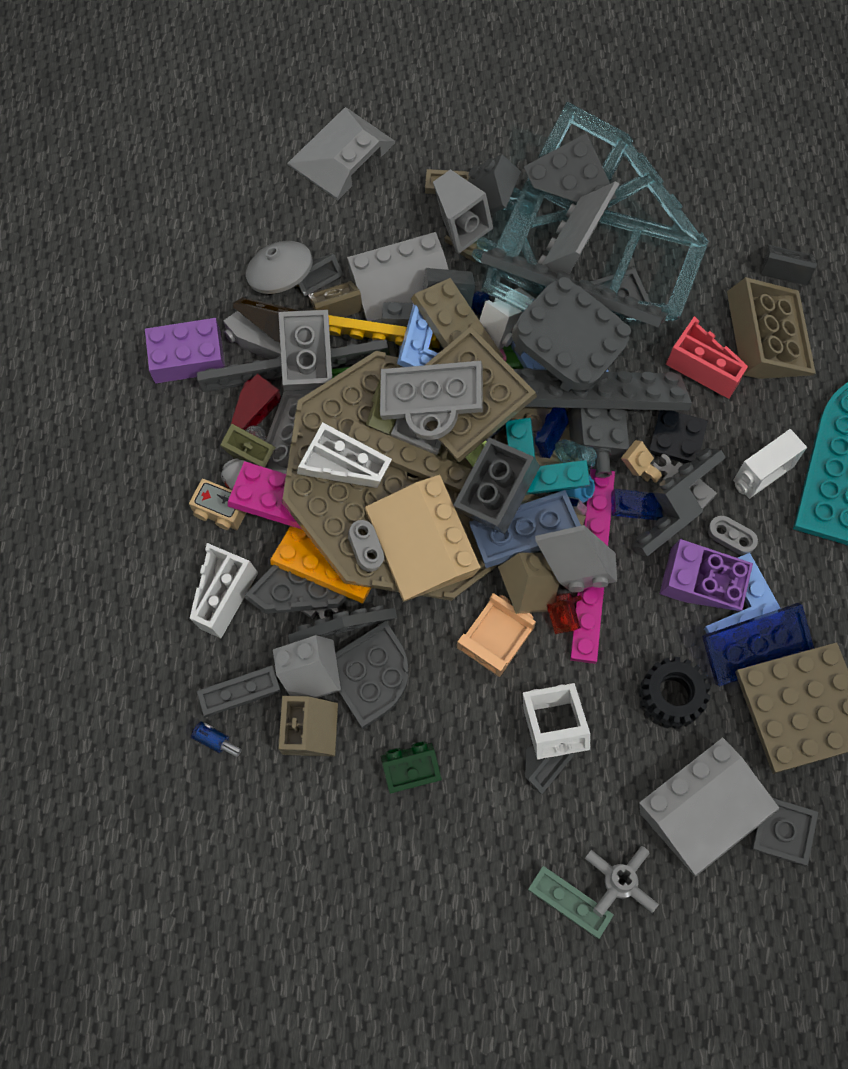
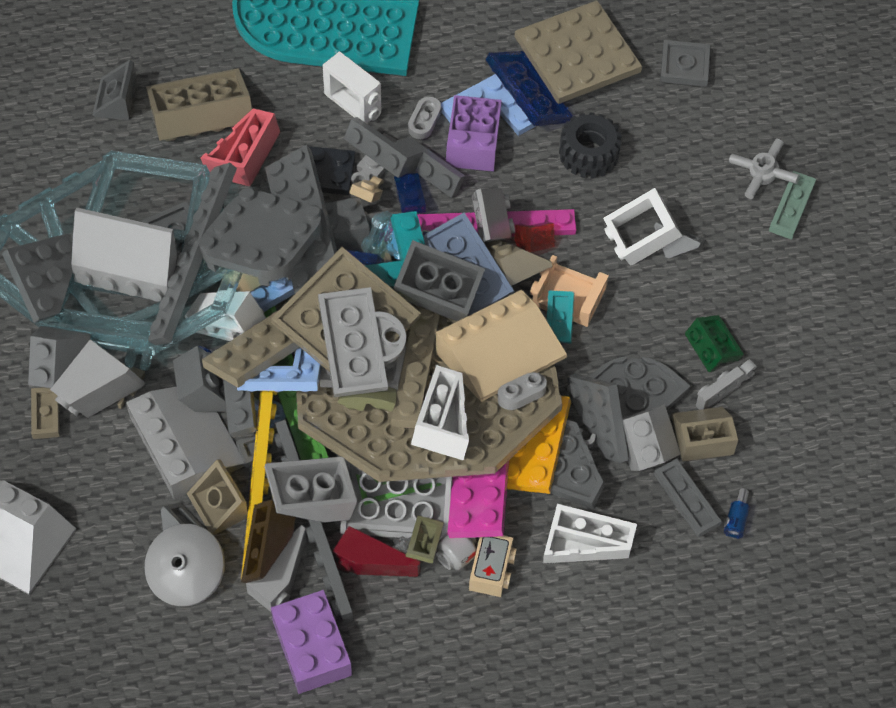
camera: 105 degrees left, 10 degrees down
(360, 766) = (725, 384): none -> light grey plate
(464, 616) = (560, 314): none -> teal plate
(708, 806) = (683, 113): light grey slope -> none

